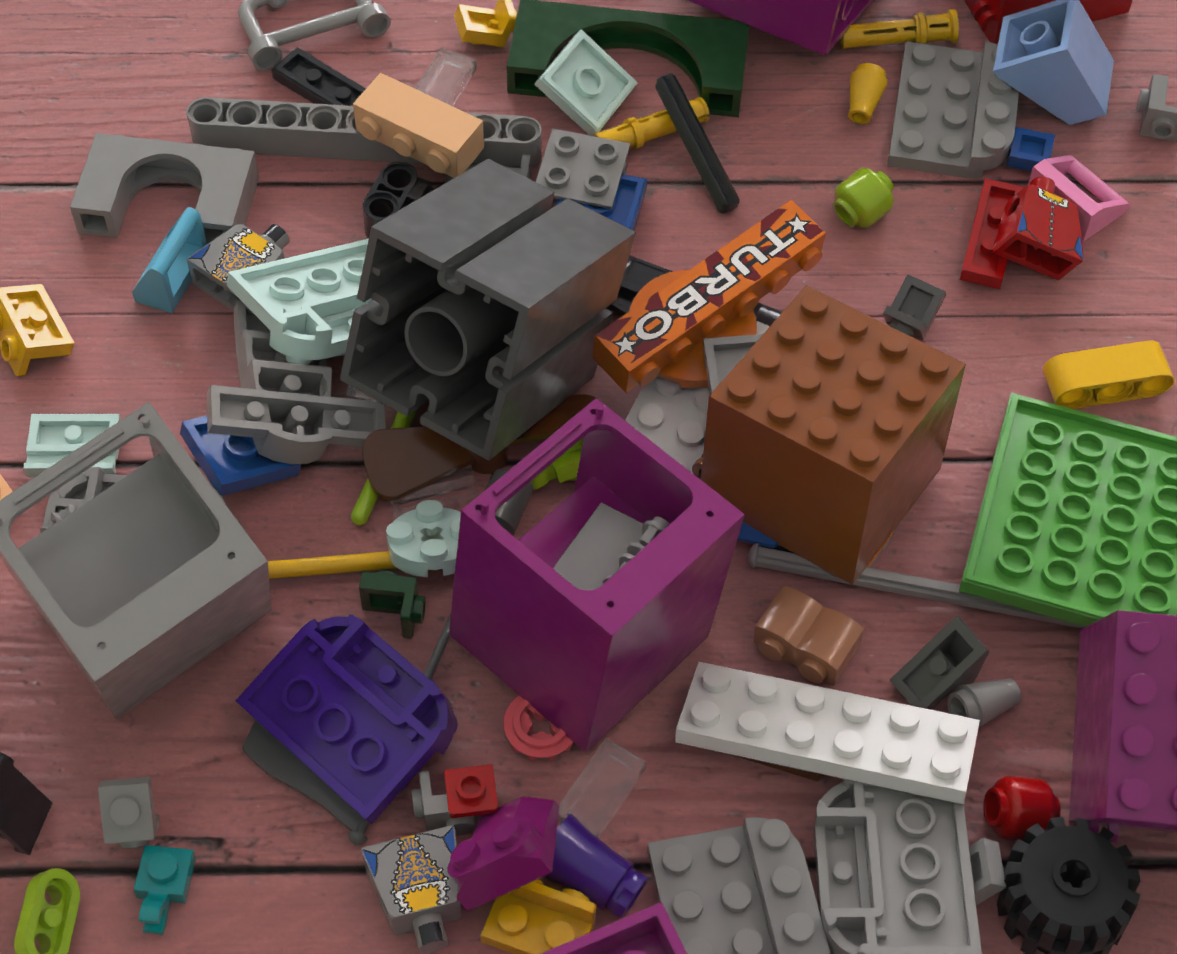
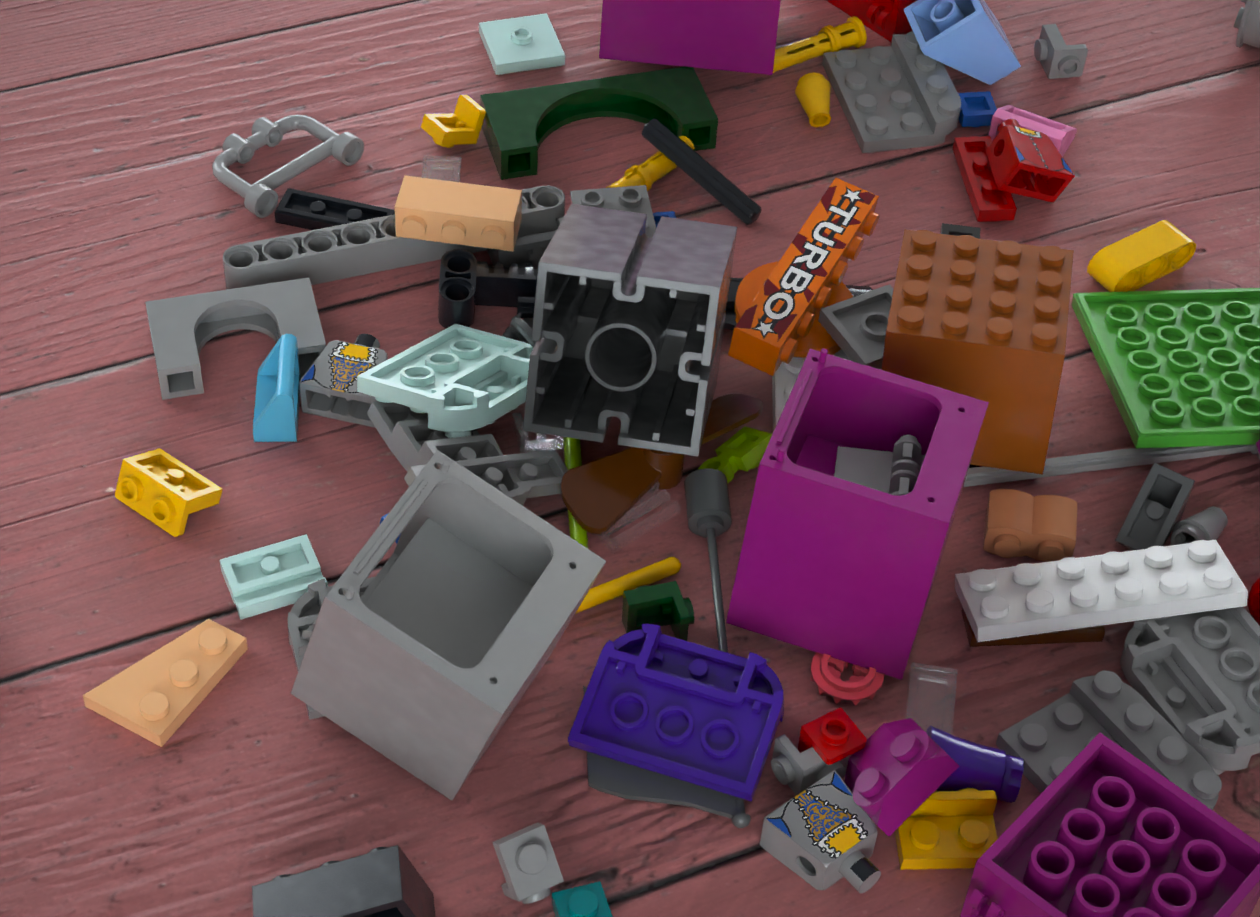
camera: 25 degrees left, 10 degrees down
(424, 539) = (662, 550): light aqua plate -> none
(586, 83) = (575, 149): light aqua plate -> none
(863, 198) = (868, 172): lime head -> none

